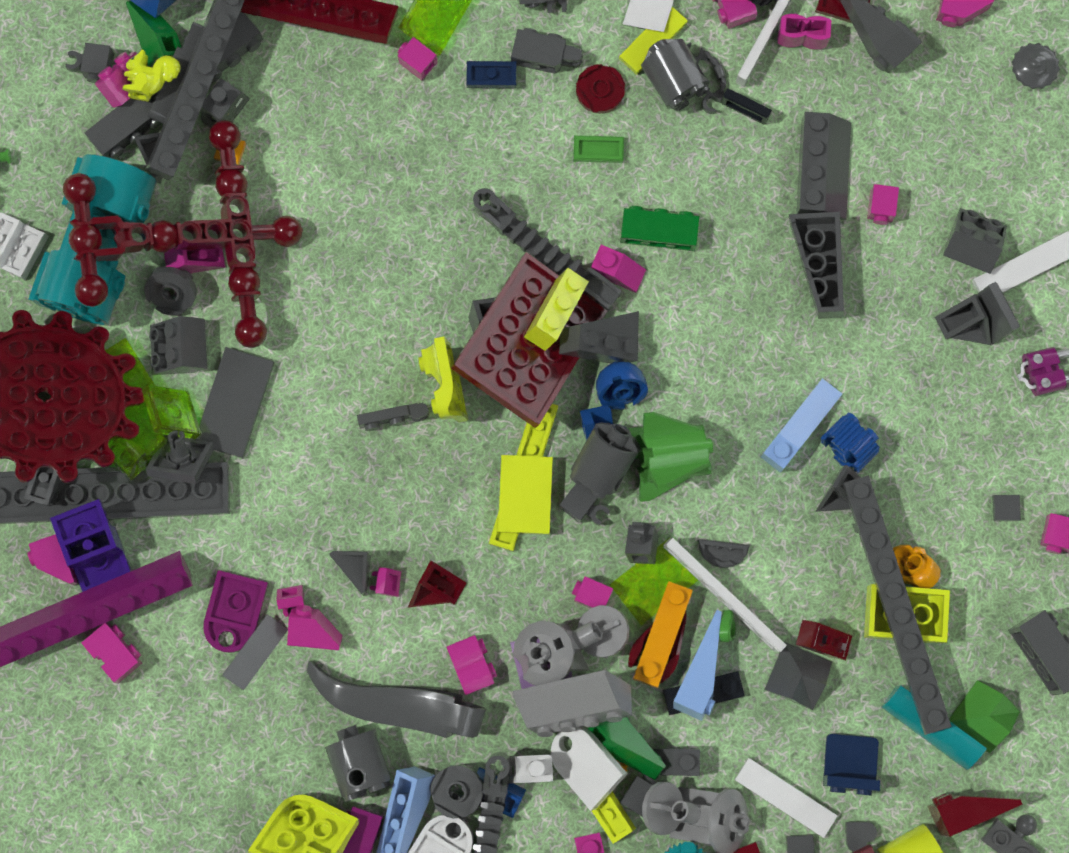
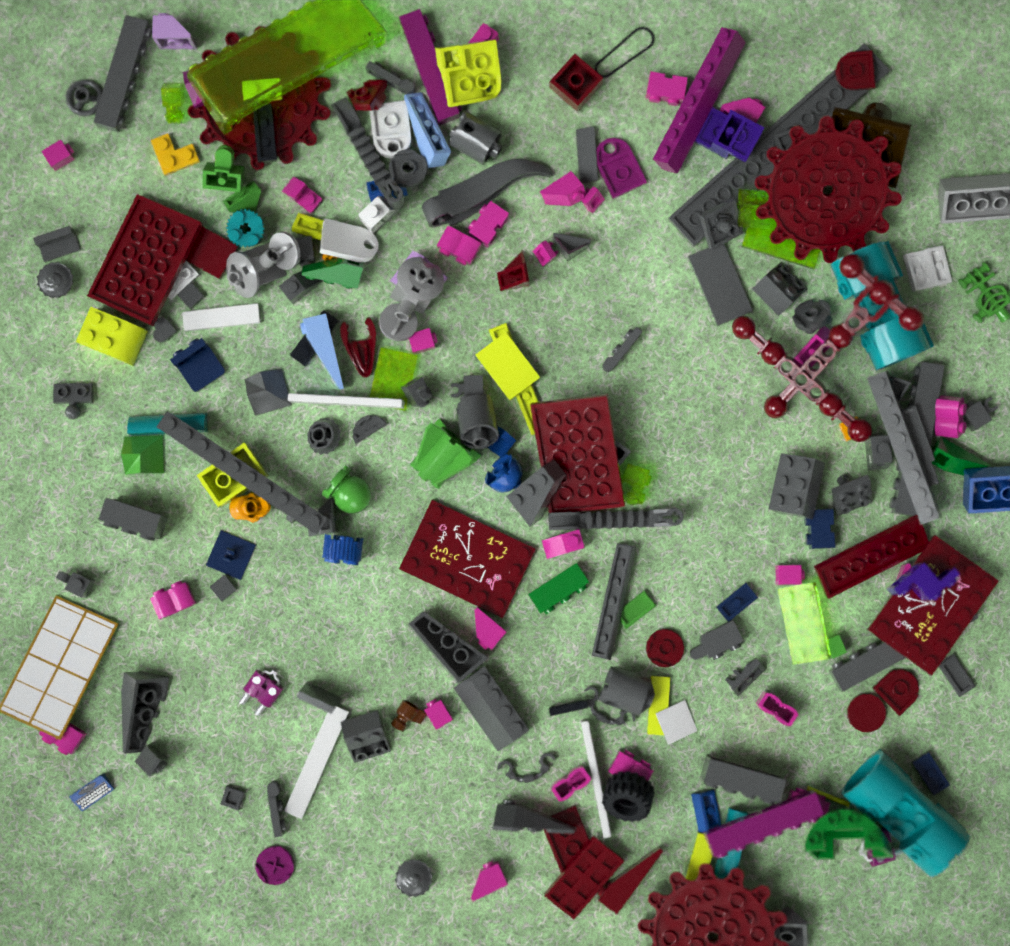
camera: 145 degrees right, 5 degrees up
(121, 743) = (637, 29): none -> black piece
(149, 80) = (932, 424): neon yellow animal -> none
(171, 411) = (750, 245): clear neon green tile -> none
(201, 736) = (576, 82): none -> dark red brick
(288, 84) = (851, 494): none -> dark grey plate
(335, 134) = (796, 486): none -> dark grey brick
(348, 78) = (819, 530): none -> dark blue brick
(425, 662) = (485, 226): none -> dark pink brick
(449, 398) = (594, 383): neon yellow slope -> none
(487, 271) = (637, 479): none -> clear neon green brick
(556, 309) = (577, 484): neon yellow brick -> none
(574, 703) = (379, 266): light grey slope -> none
(613, 173) = (613, 601): none -> dark grey tile
(662, 634) = (363, 349): light orange plate -> none
(727, 626) = (329, 384): bright green tile -> none
(728, 335) = (467, 558): none -> dark red plate
(765, 244) = (487, 630): none -> dark pink slope
(770, 575) = (324, 436): none -> dark grey piece
(797, 496) = (349, 492): none -> bright green tile
(801, 425) = (380, 539): light blue slope -> none
(824, 640) = (268, 421): dark red piece -> none
(841, 73) = (527, 778): none -> dark grey piece
(913, 230) = (407, 712): none -> reddish brown piece
(960, 813) = (112, 389): dark red slope -> none
(966, 322) = (333, 680): dark grey slope -> none
(971, 536) = (230, 555): none -> dark blue piece

